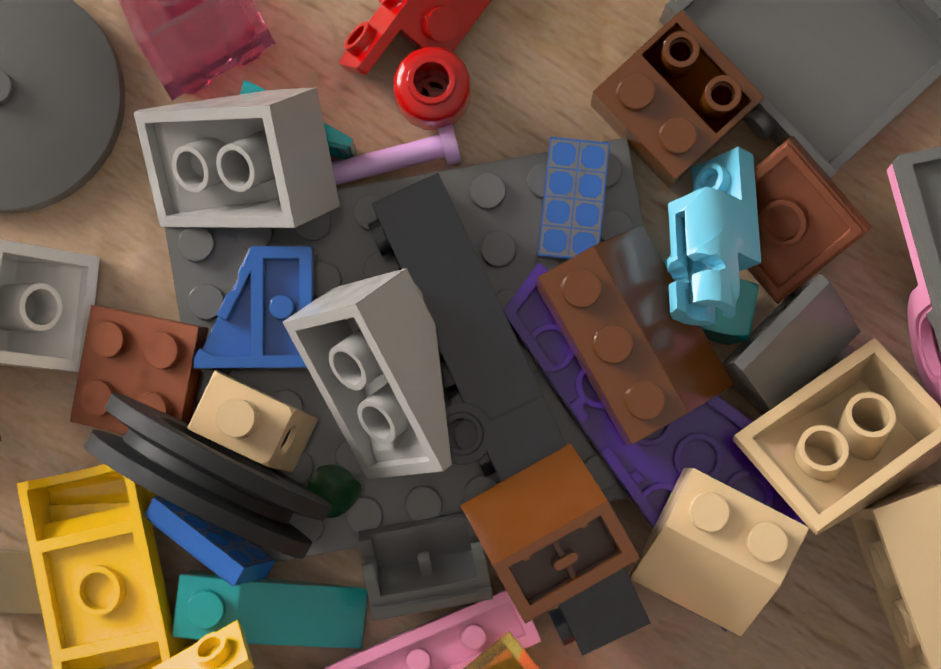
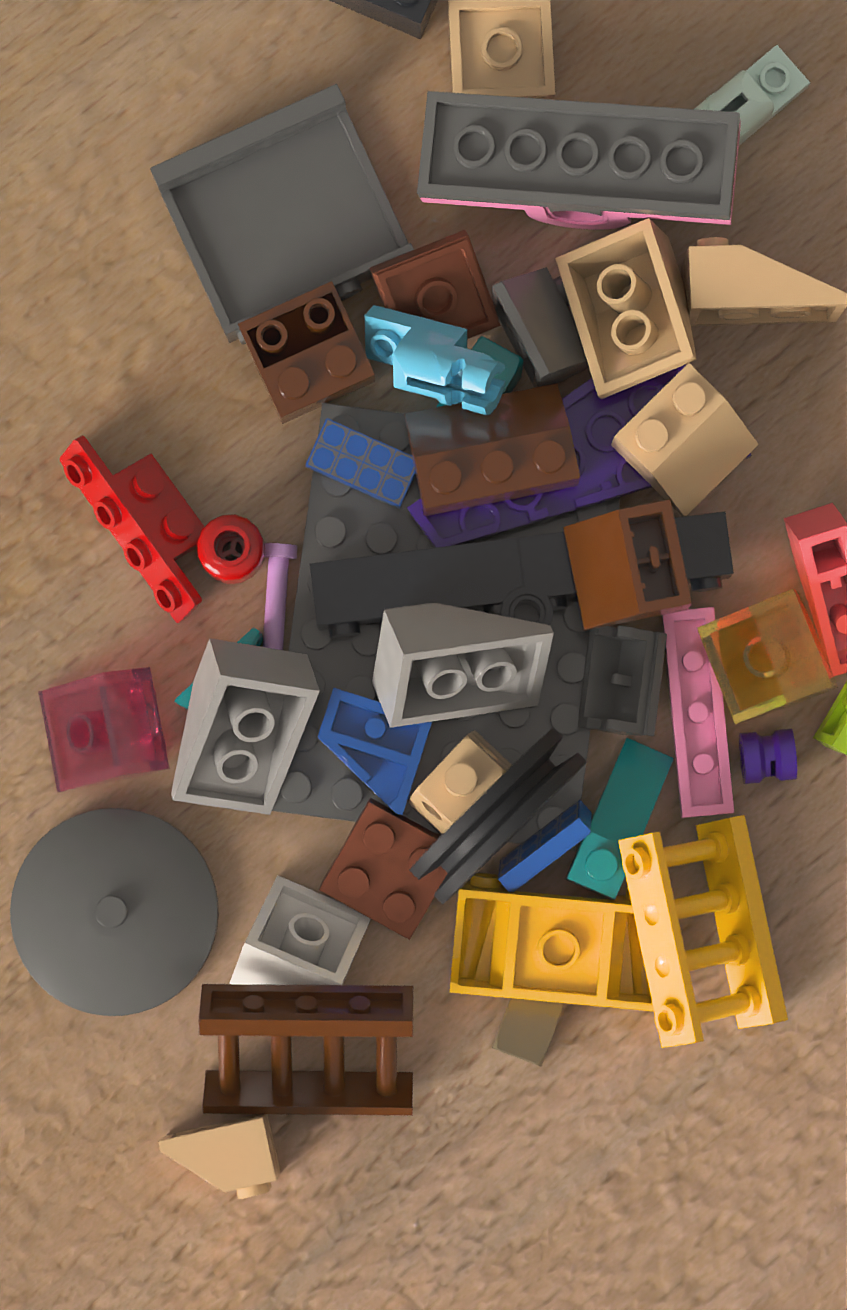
camera: 75 degrees left, 0 degrees up
(336, 487) = (533, 729): clear green hinge -> none

